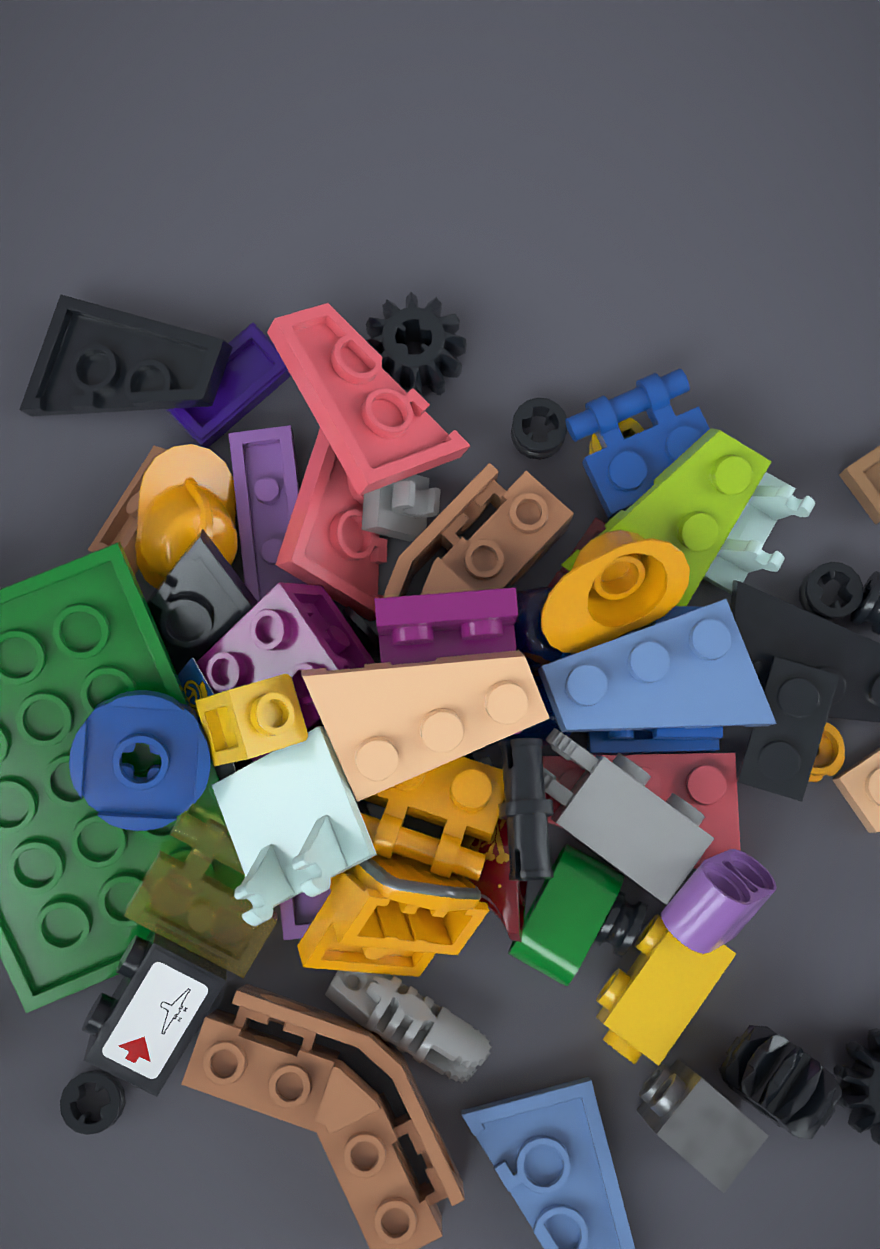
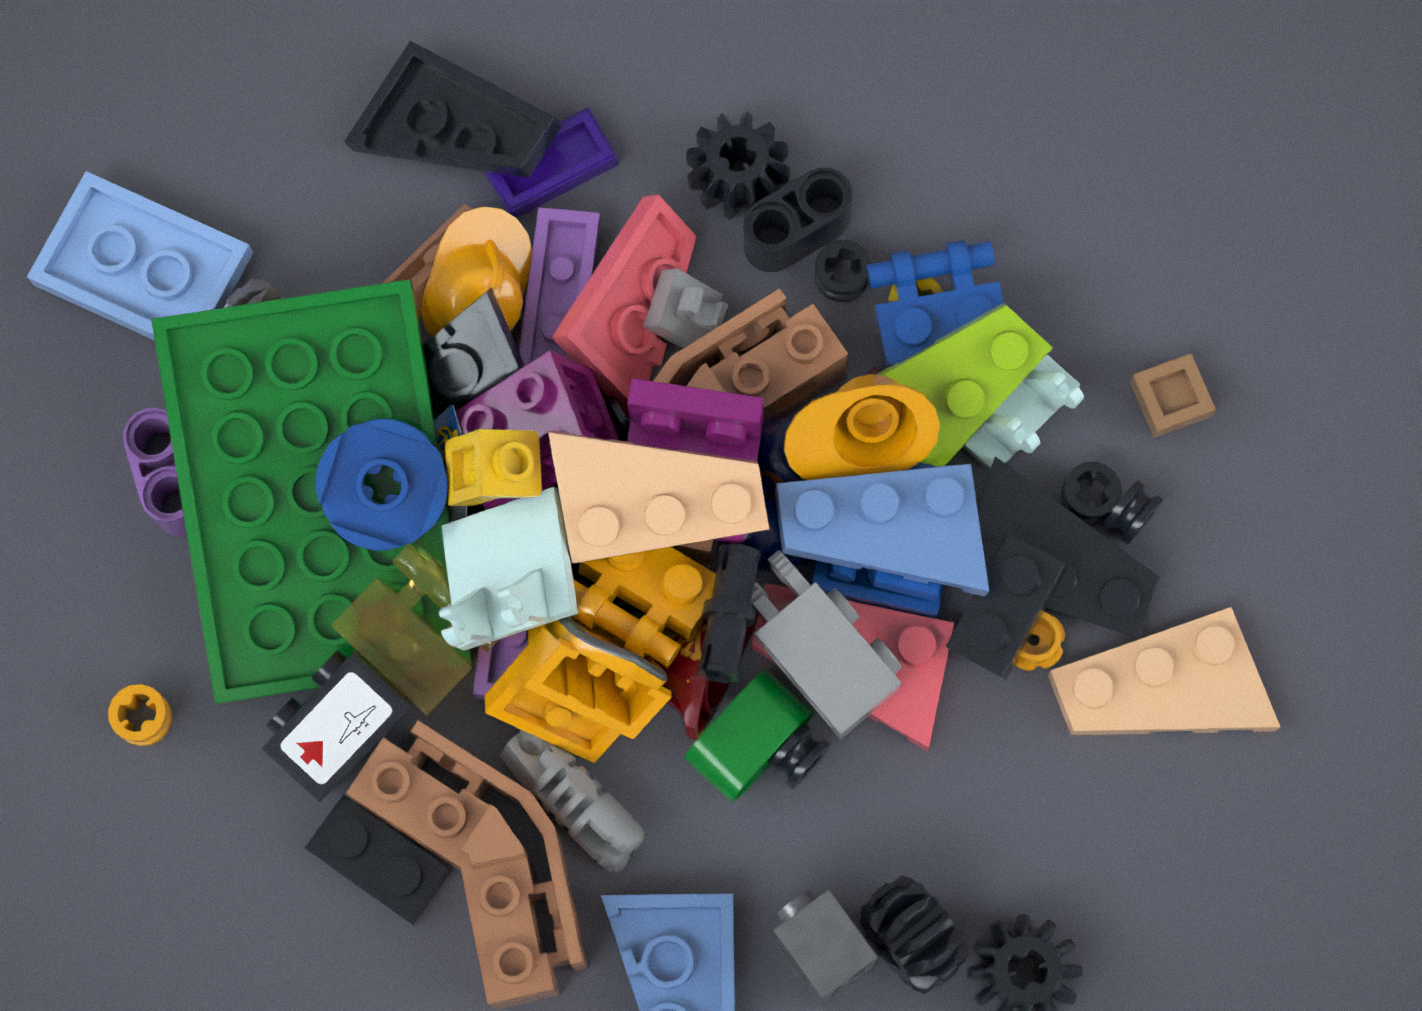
camera: 20 degrees right, 5 degrees down
(76, 1090) = (240, 792): black bush -> none
(226, 1133) = (378, 859): none -> black plate
(363, 412) = (669, 211): coral wing -> none
(483, 387) = (790, 212): none -> black beam
(658, 993) = (825, 825): yellow brick -> none
(718, 900) = (894, 746): medium lavender beam -> none

